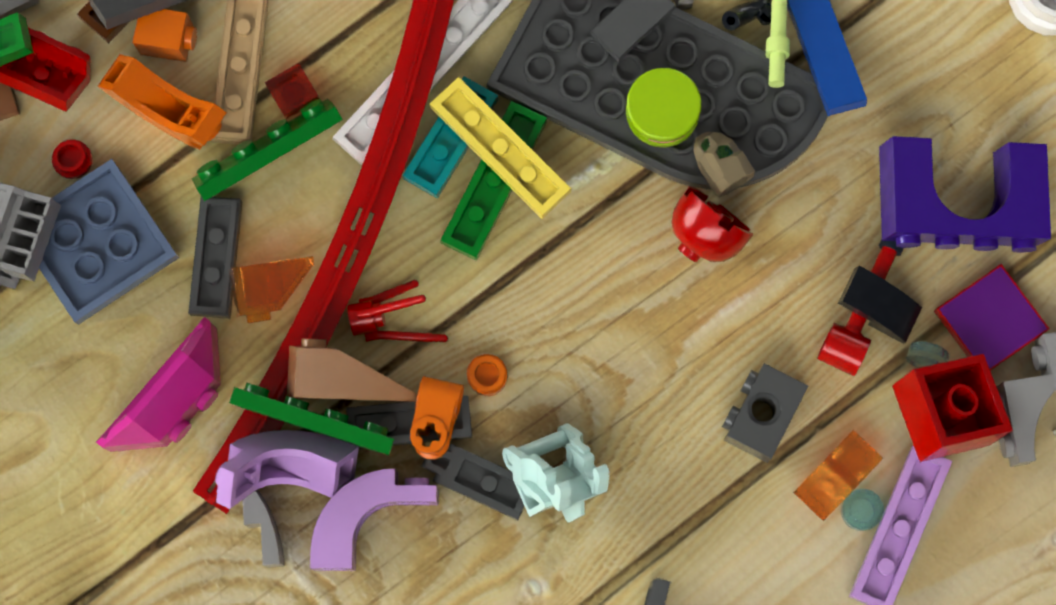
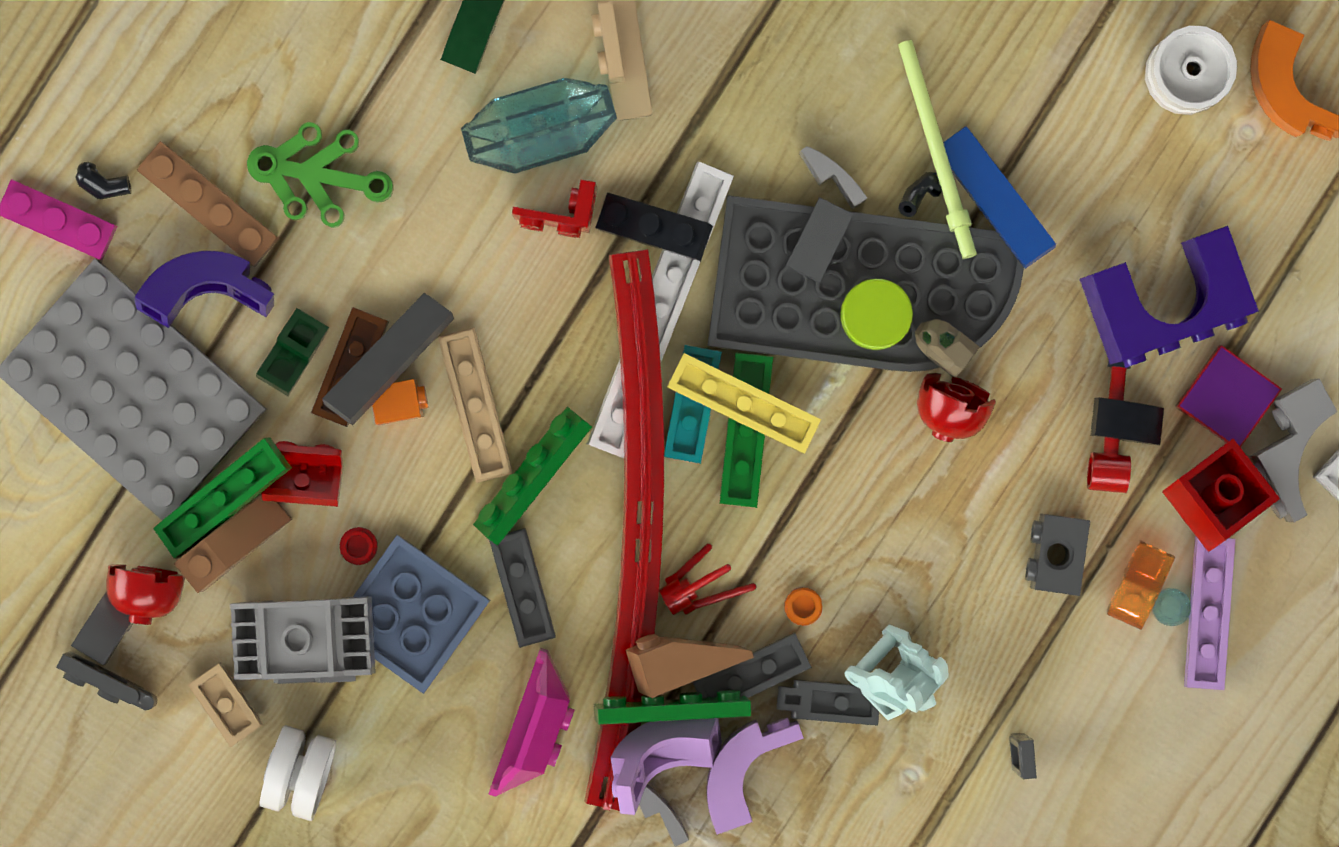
camera: 20 degrees left, 10 degrees up
(162, 104) = (425, 469): orange arch -> none
(266, 286) = (582, 599): clear orange slope -> none
(291, 90) = (533, 413): clear red plate -> none
(437, 410) = (775, 657): orange piece -> none
(925, 354) = (1184, 452): clear light blue tile -> none

